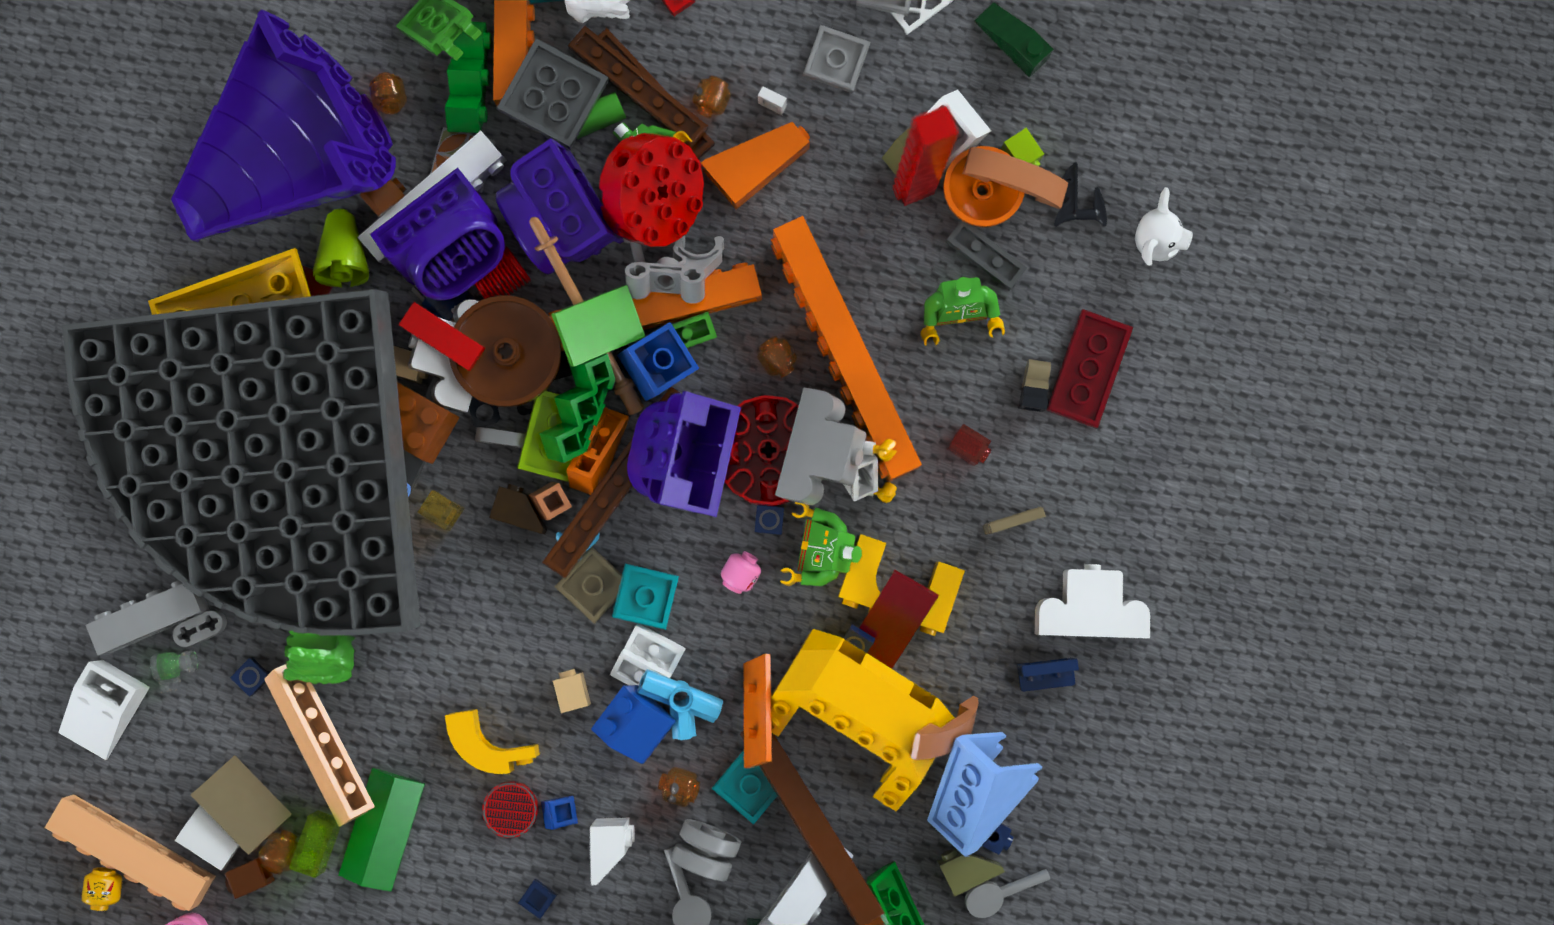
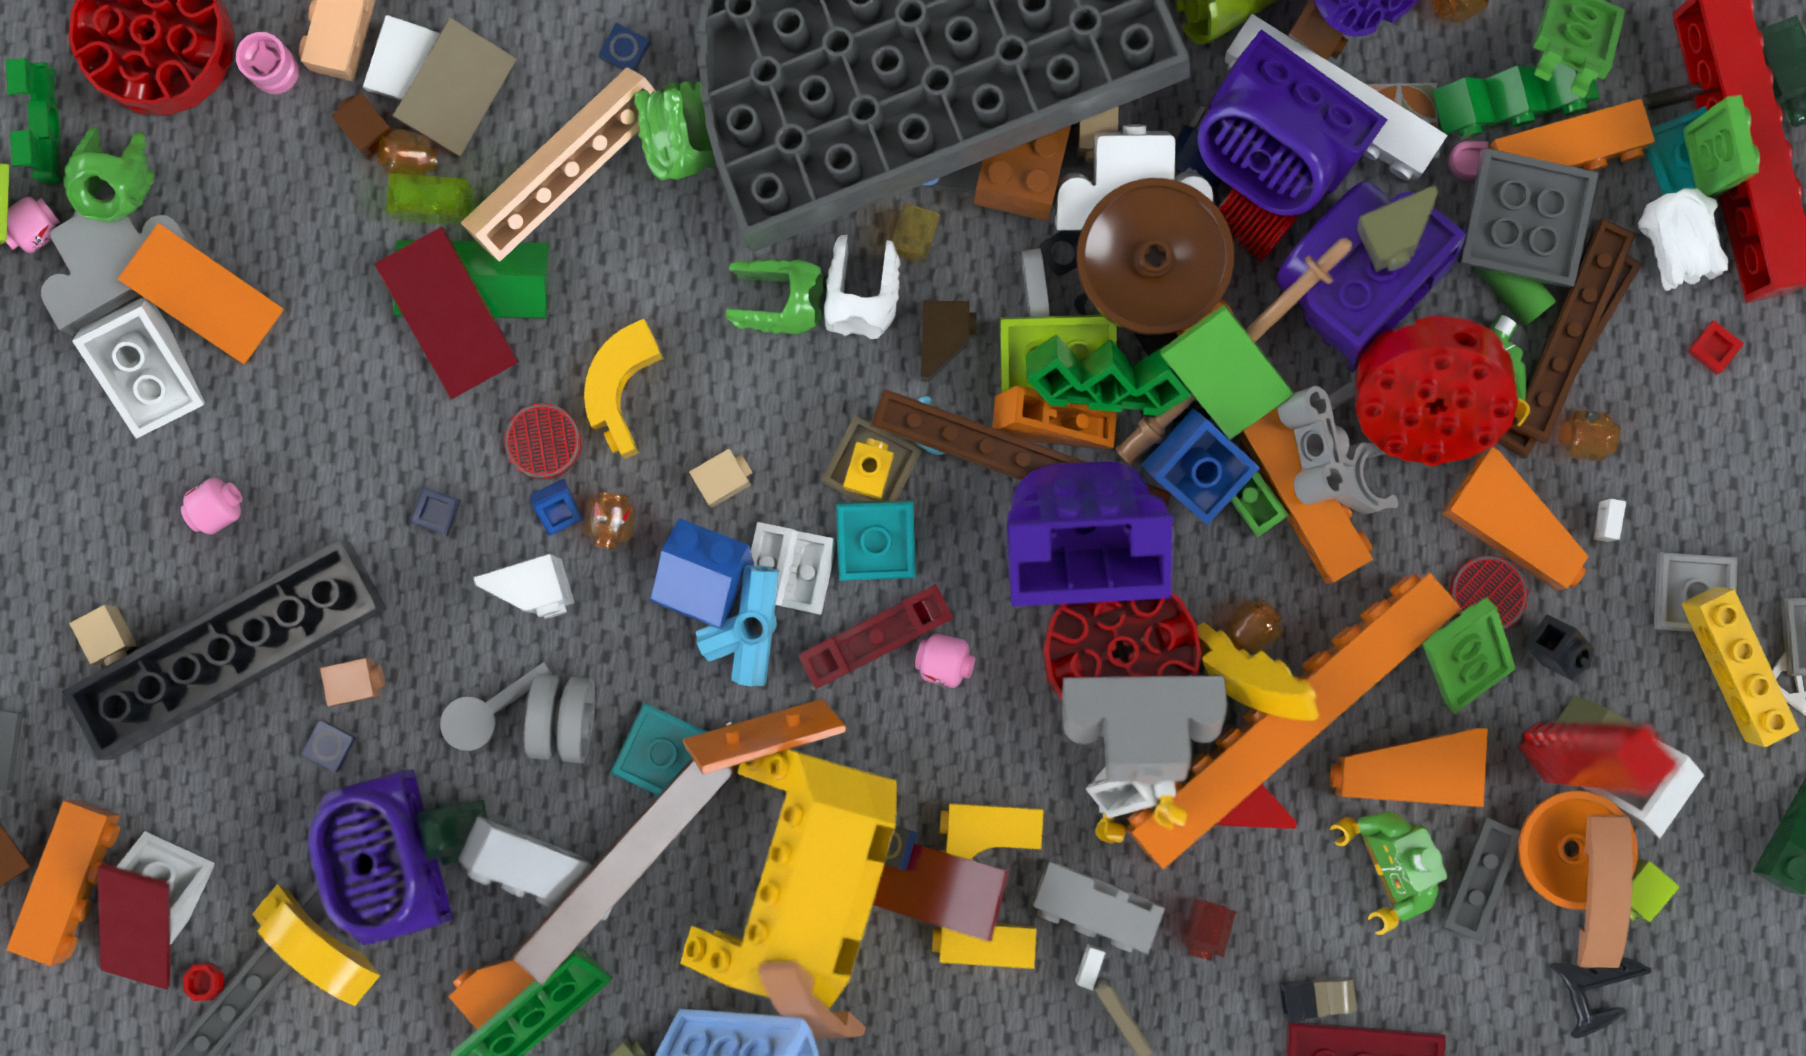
camera: 75 degrees right, 0 degrees up
(399, 853) = (446, 312): none -> dark red tile
(442, 336) = (1150, 166): red tile -> none
(469, 602) = (802, 308): none -> bright green piece
(484, 568) = (858, 314): none -> white piece
(500, 123) = (1464, 159): none -> bright pink tile
(534, 184) = (1396, 229): none -> olive slope
(550, 500) = (968, 374): nougat brick -> none
(578, 778) = (608, 520): none -> clear orange head
(595, 587) = (869, 469): none -> yellow brick
(679, 787) = (633, 658): clear orange head -> none
(711, 615) = (875, 637): none -> dark red slope
(769, 519) = (1027, 679): dark blue tile -> none
(798, 194) = (1493, 579): none -> tile
(813, 365) = (1256, 679): none -> yellow slope
(825, 549) = (1008, 767): bright green torso -> none
(835, 219) = (1469, 655): none -> bright green plate
(847, 158) = (1560, 648): none -> black brick
(892, 44) = (1740, 666): none -> yellow brick
(900, 389) = (1259, 810): none -> red slope
(904, 270) = (1422, 770): none -> orange slope
(935, 516) = (1097, 907): none -> light grey wedge
(973, 532) = (1090, 966): none -> white tile

